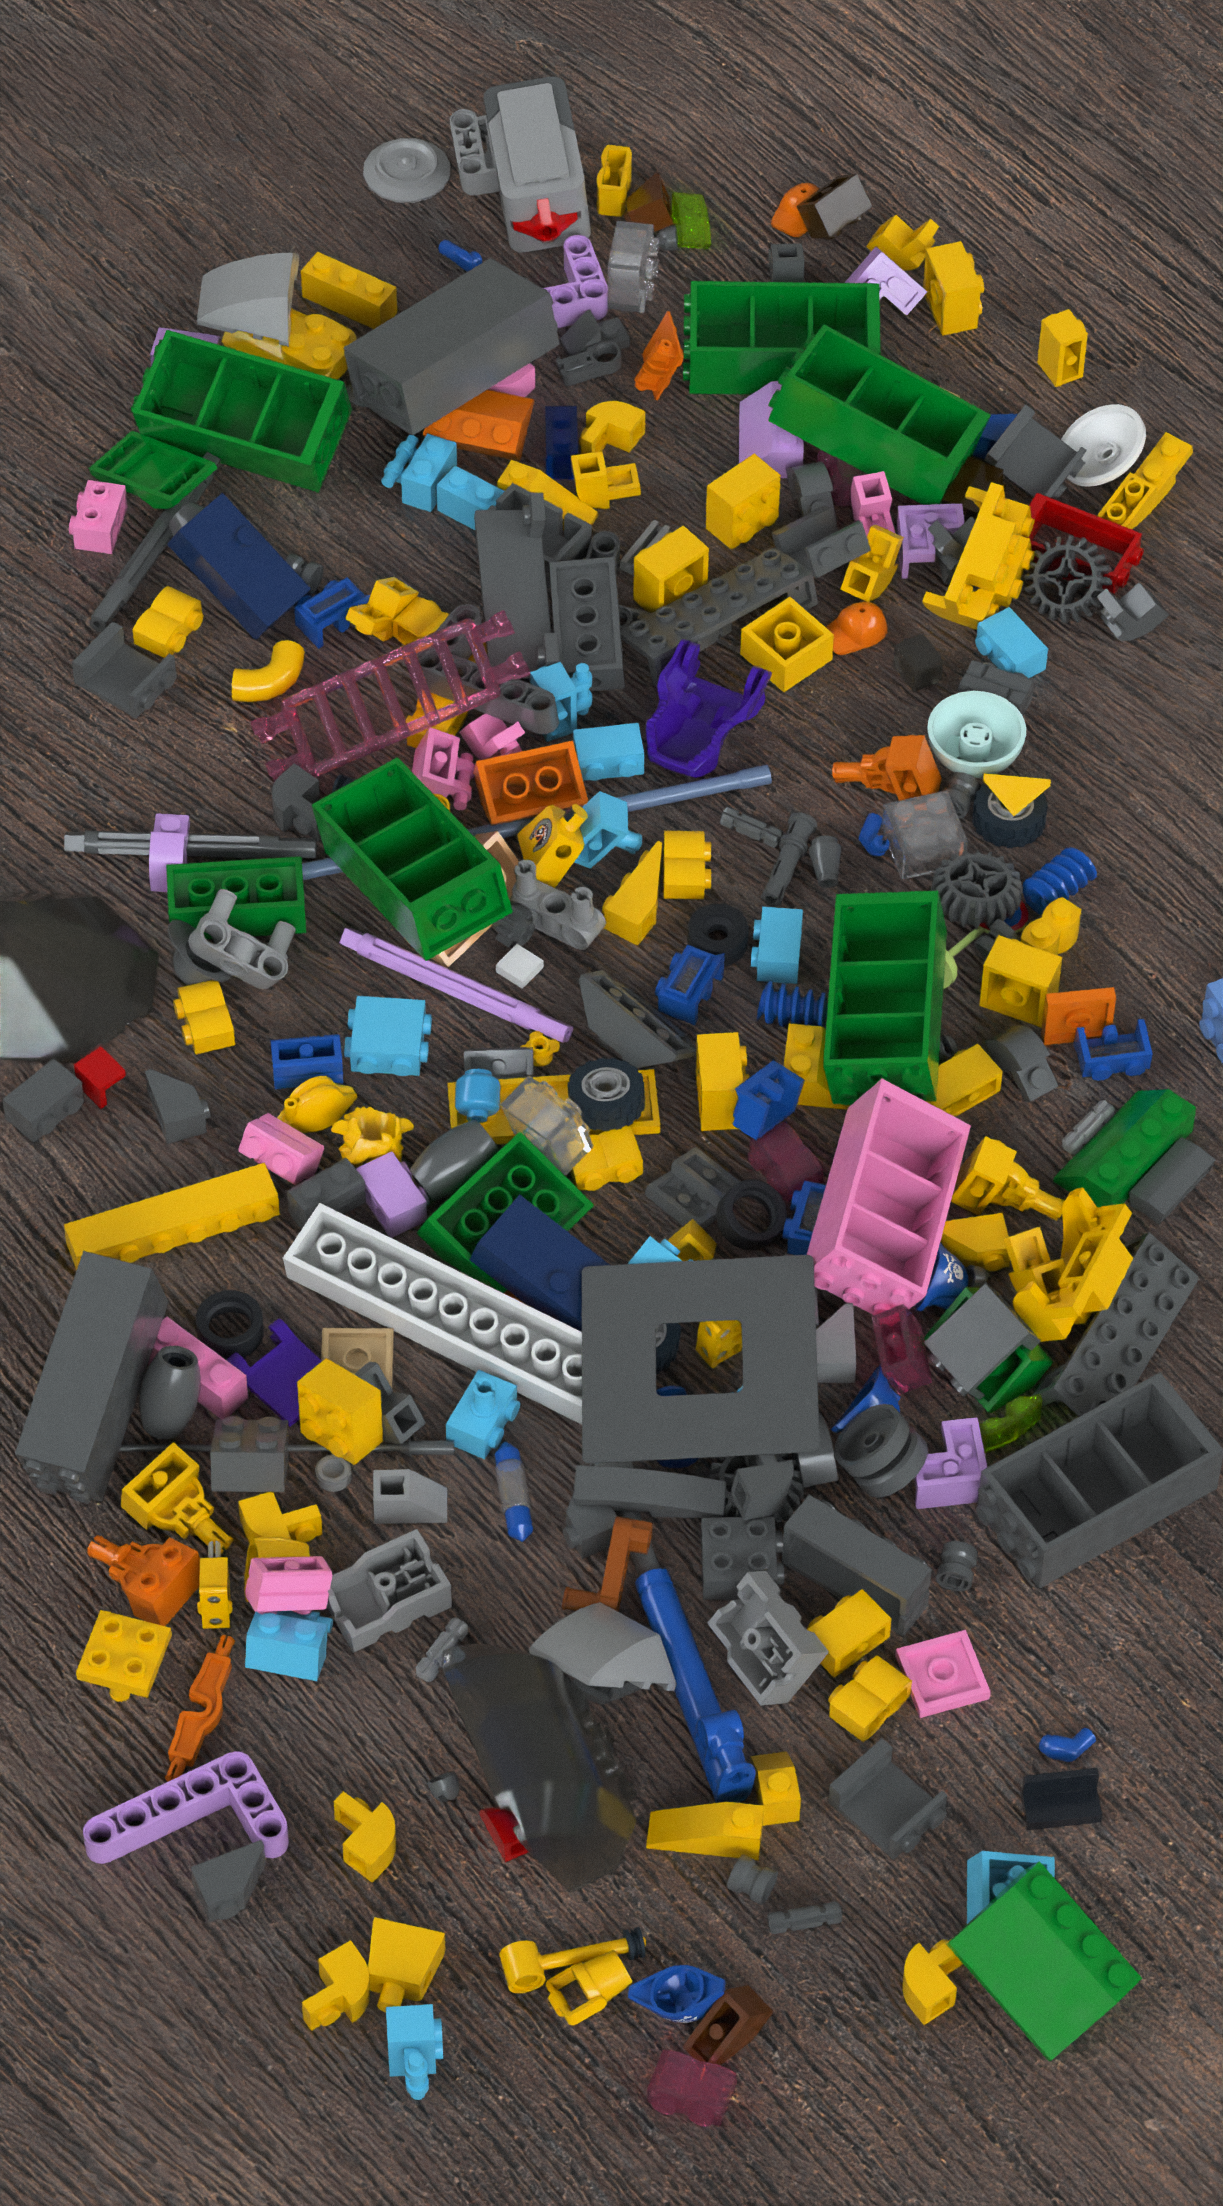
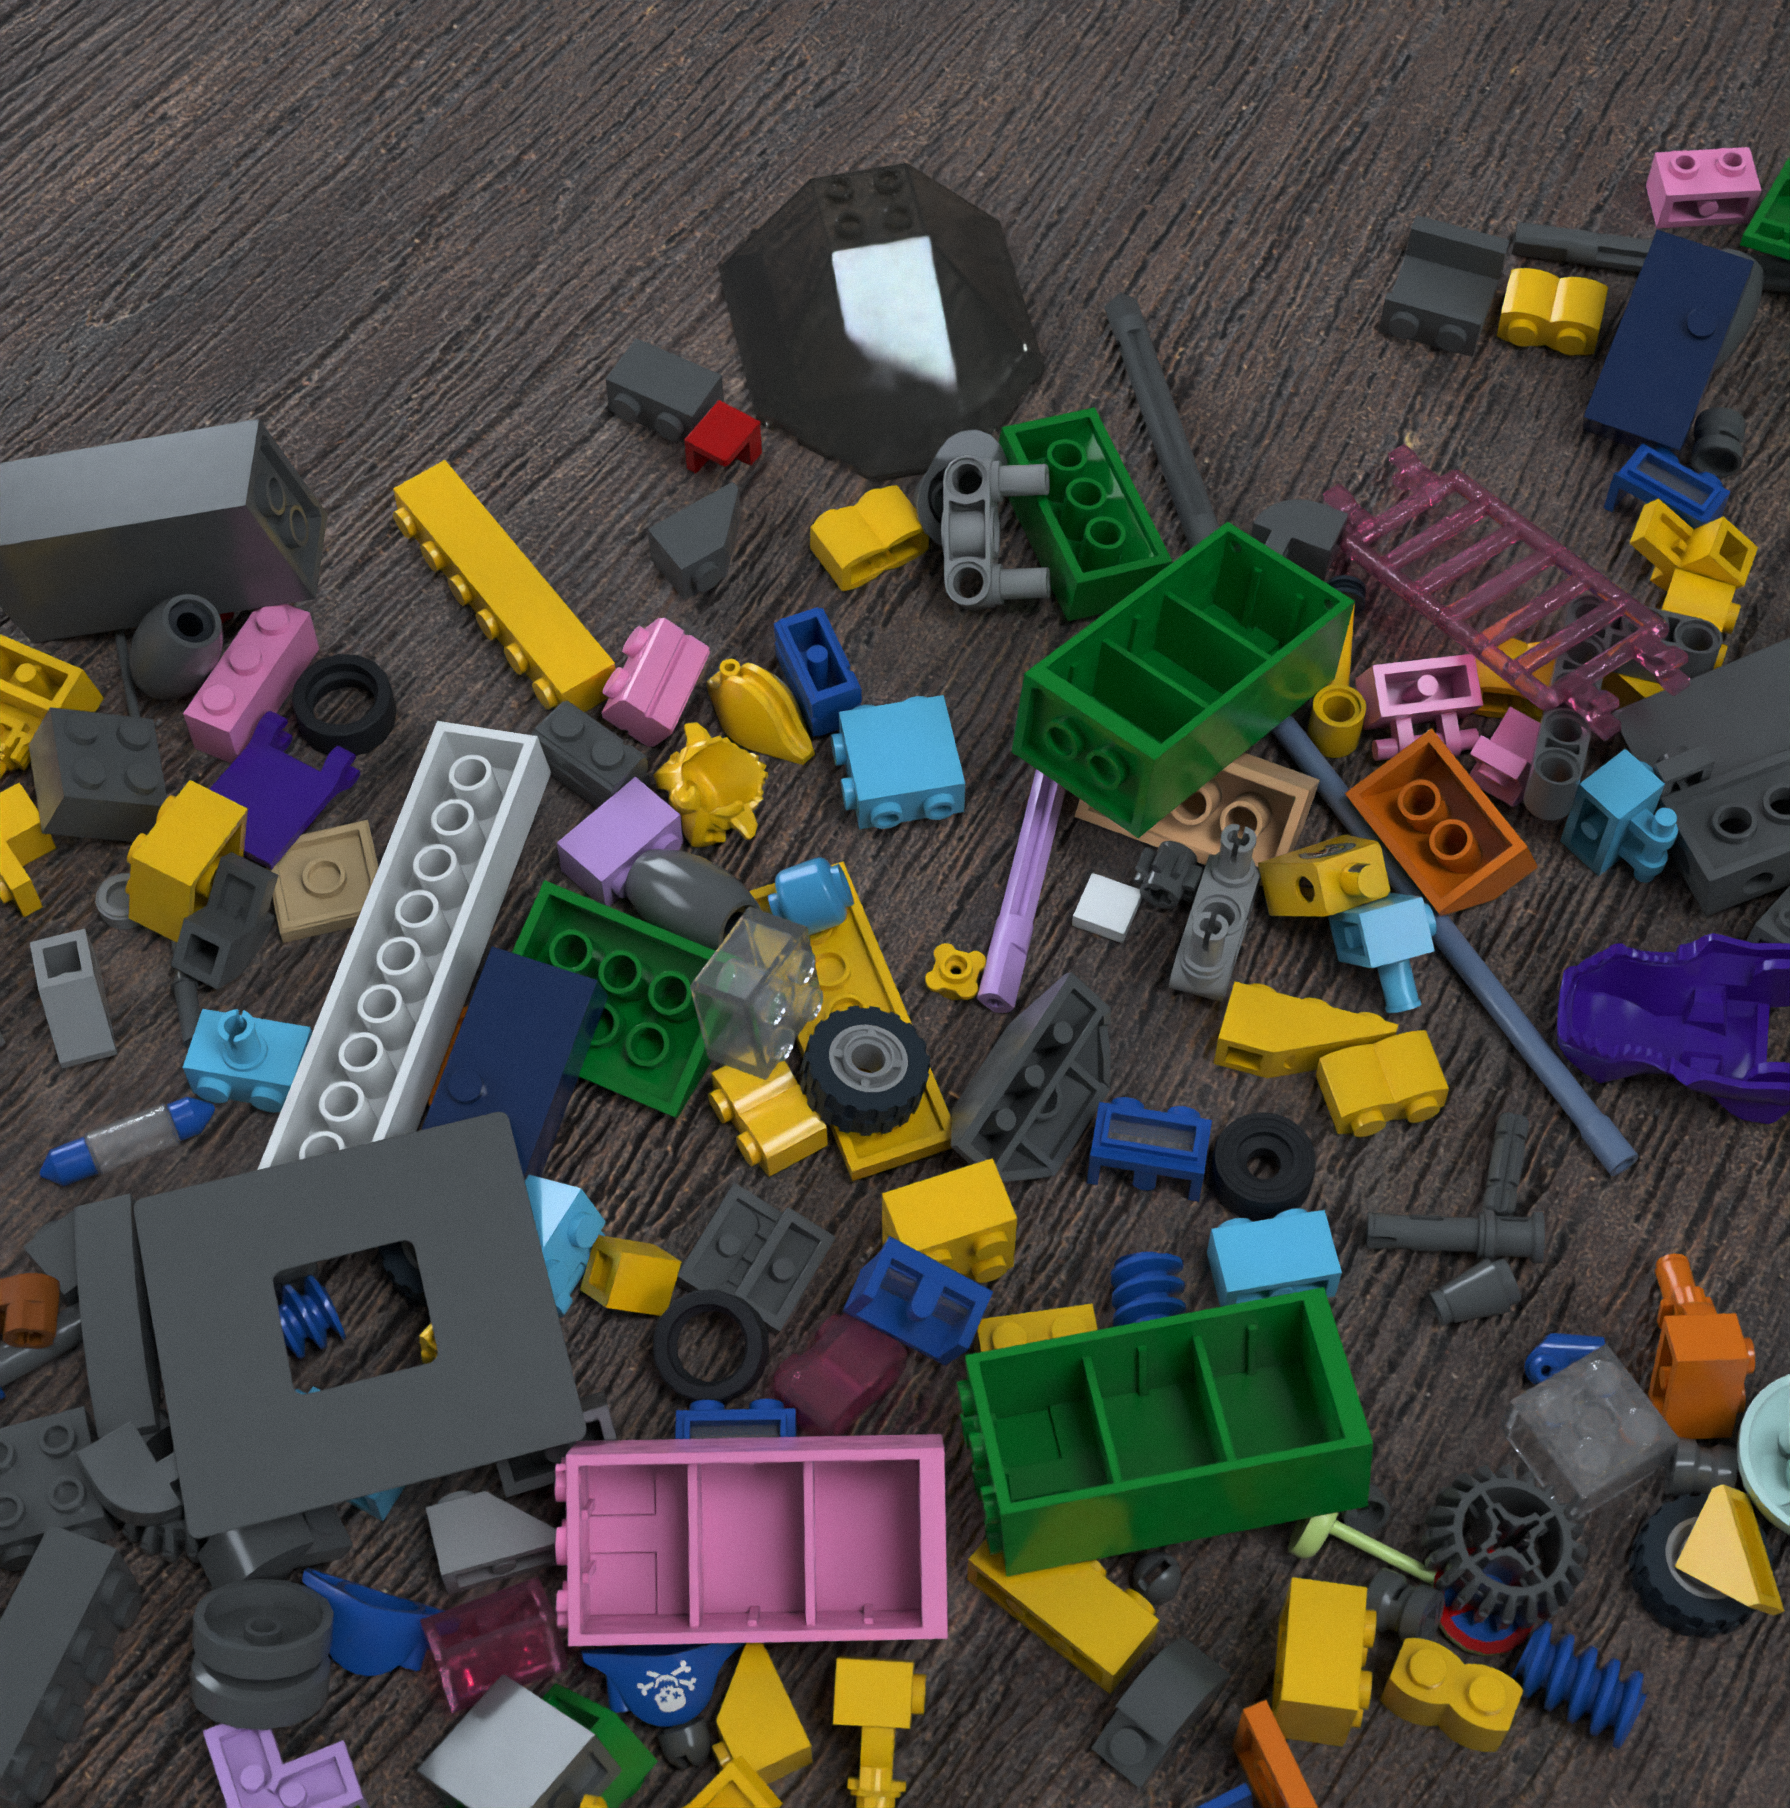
camera: 75 degrees right, 5 degrees up
(167, 847) = (1140, 406): lavender brick -> none
(271, 680) = (1506, 458): yellow cylinder -> none
(502, 1062) = (900, 922): dark grey plate -> none
(609, 751) = (1552, 915): medium azure brick -> none

